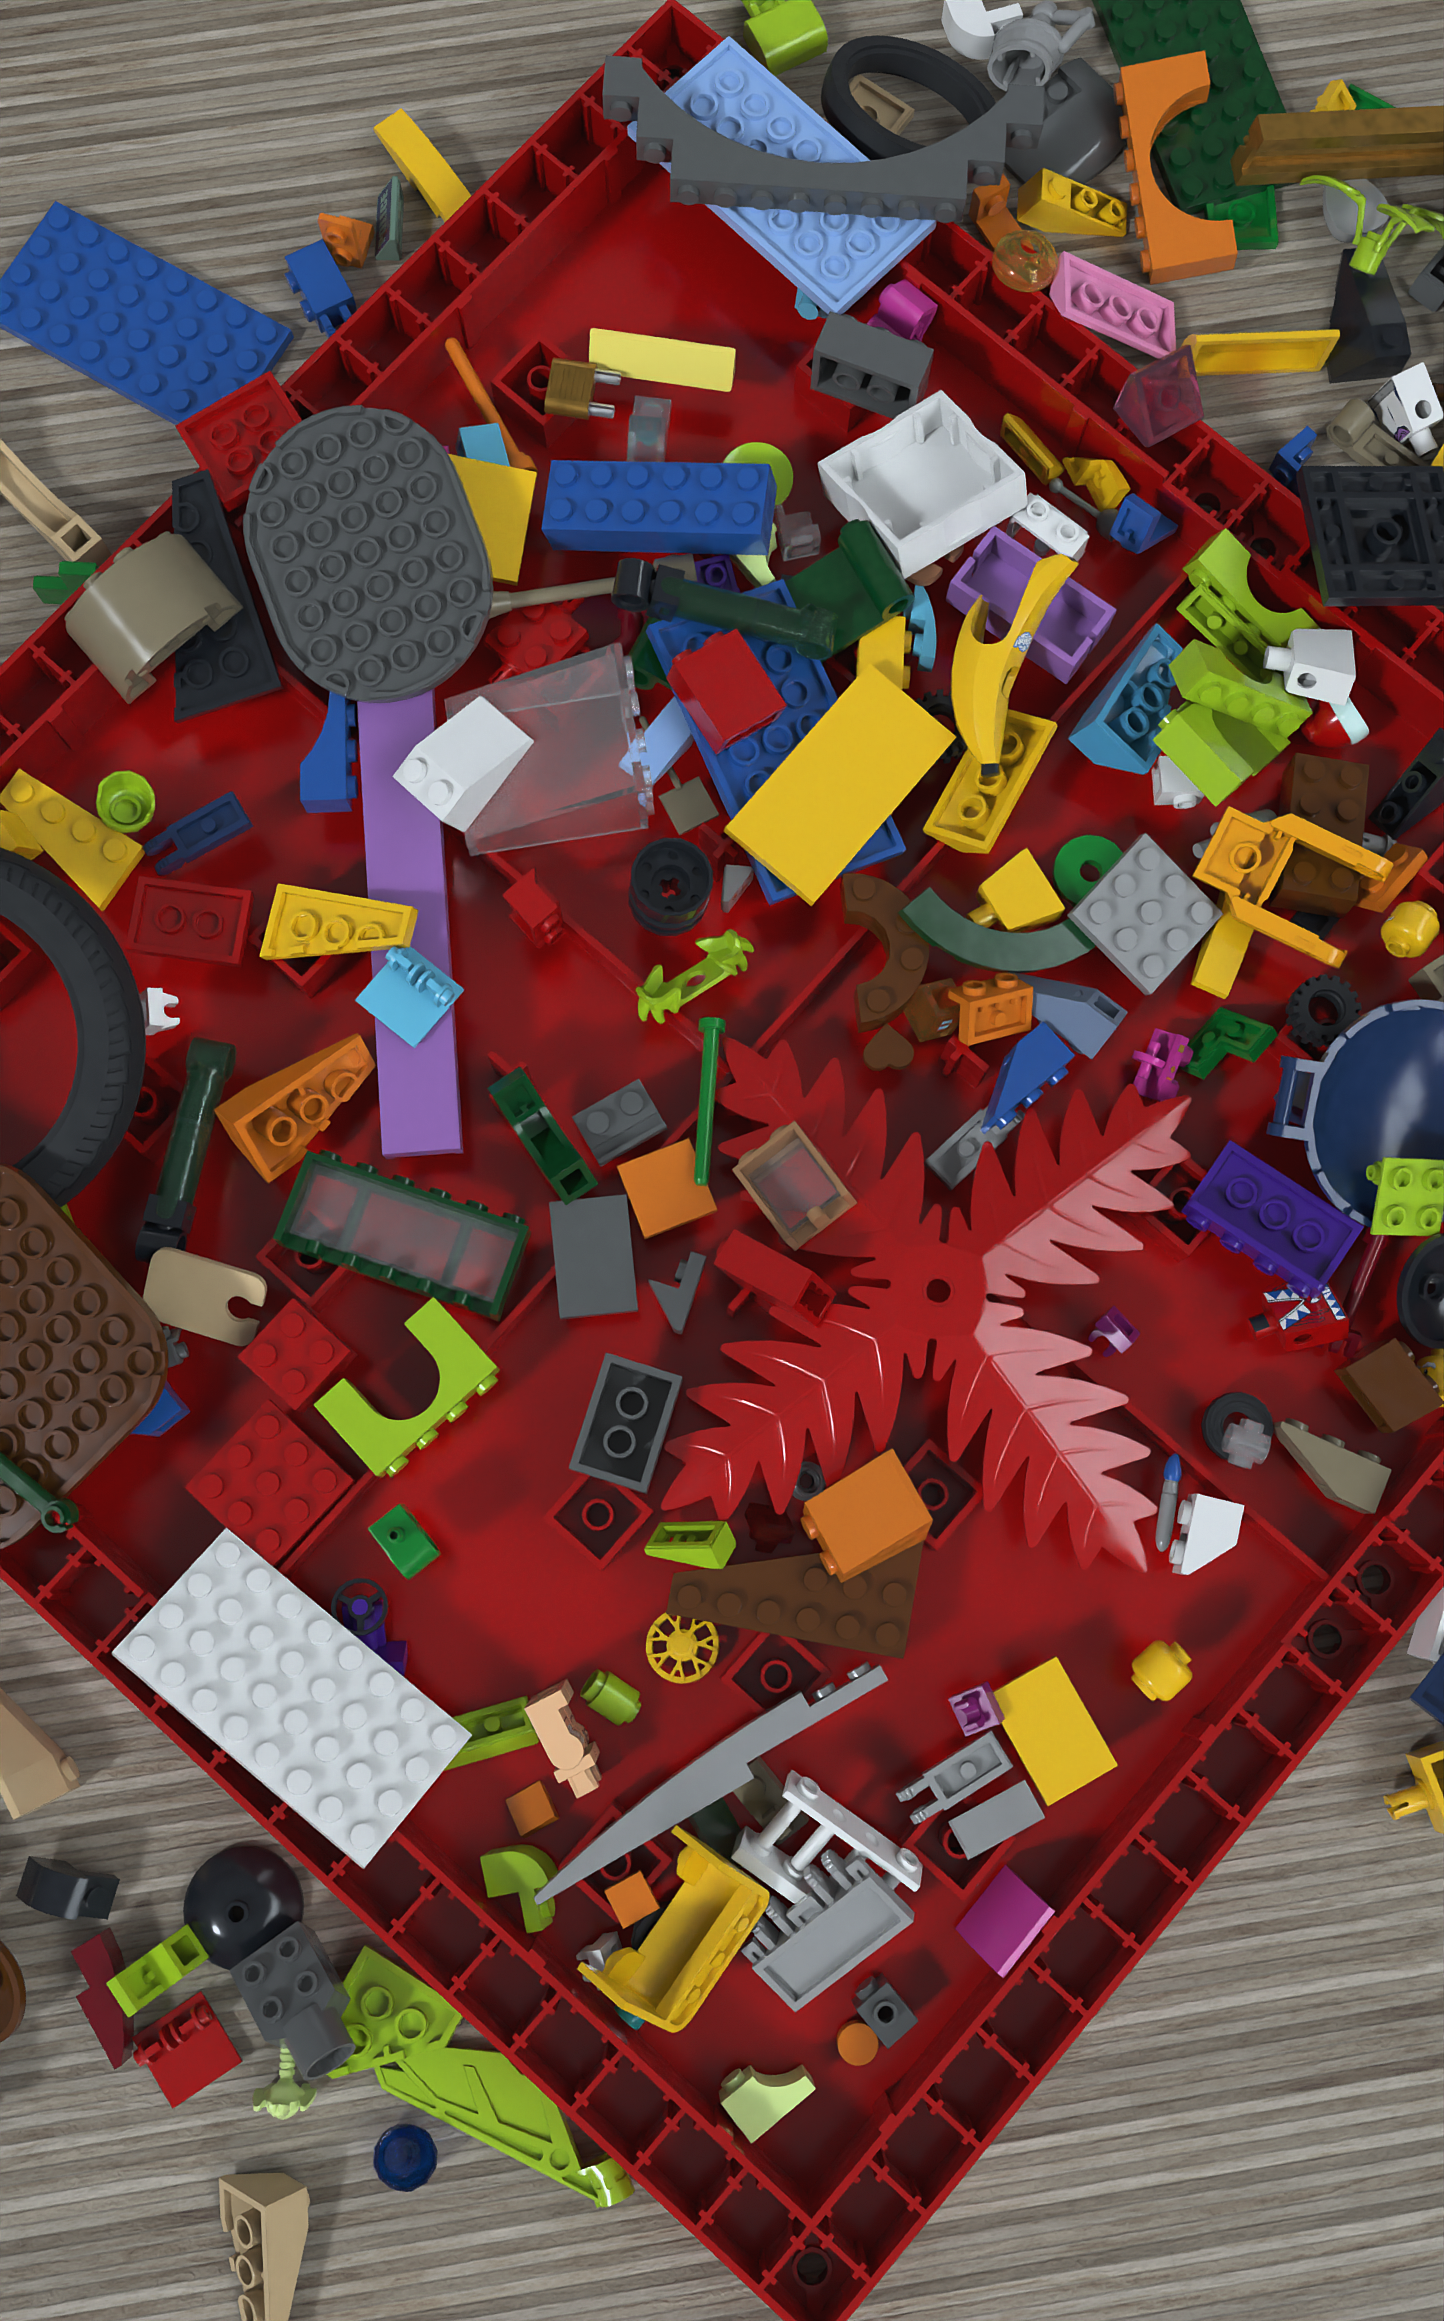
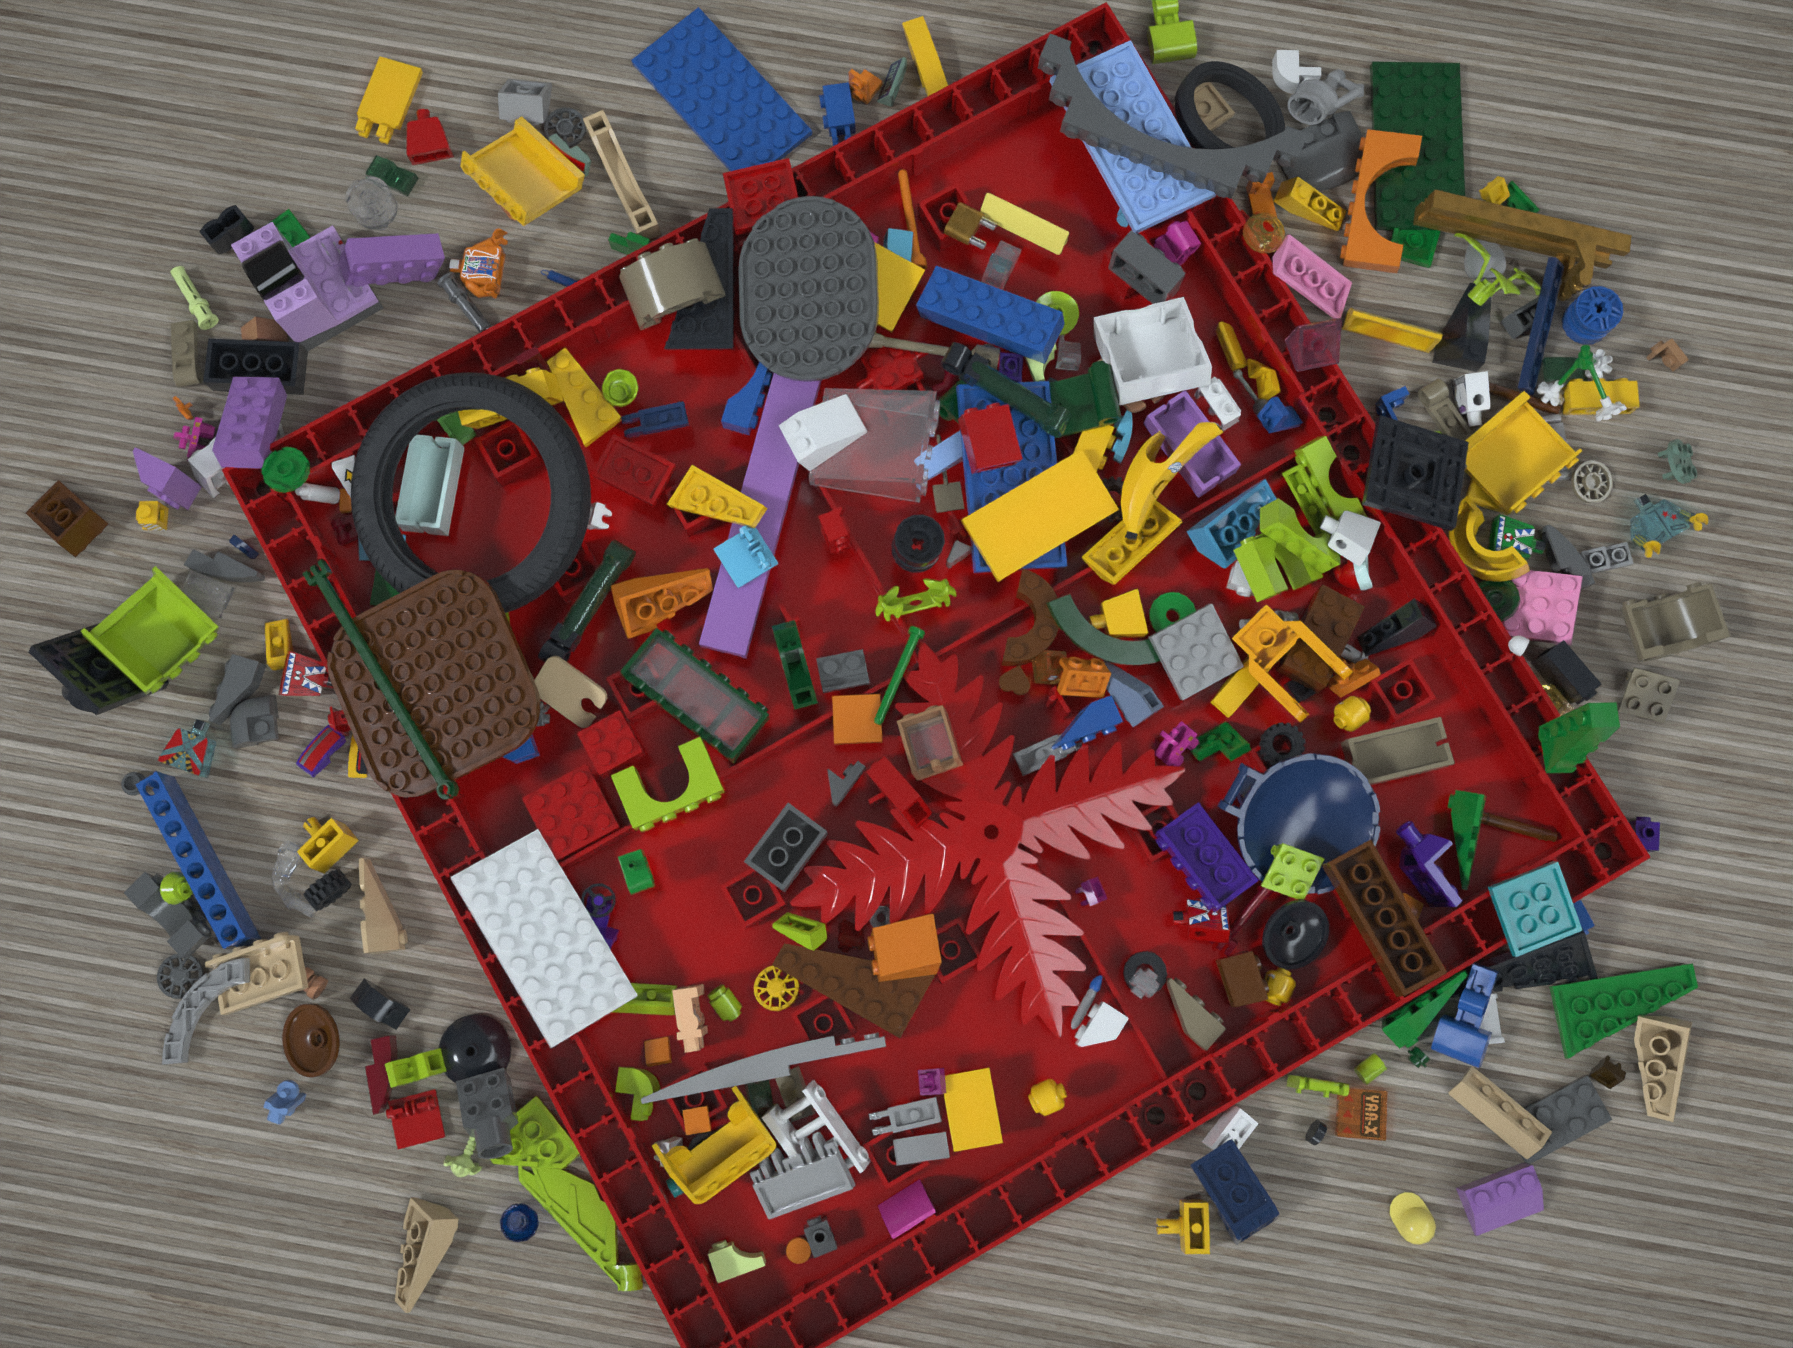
camera: 20 degrees right, 0 degrees up
(593, 1257) = (801, 744): dark grey tile -> none

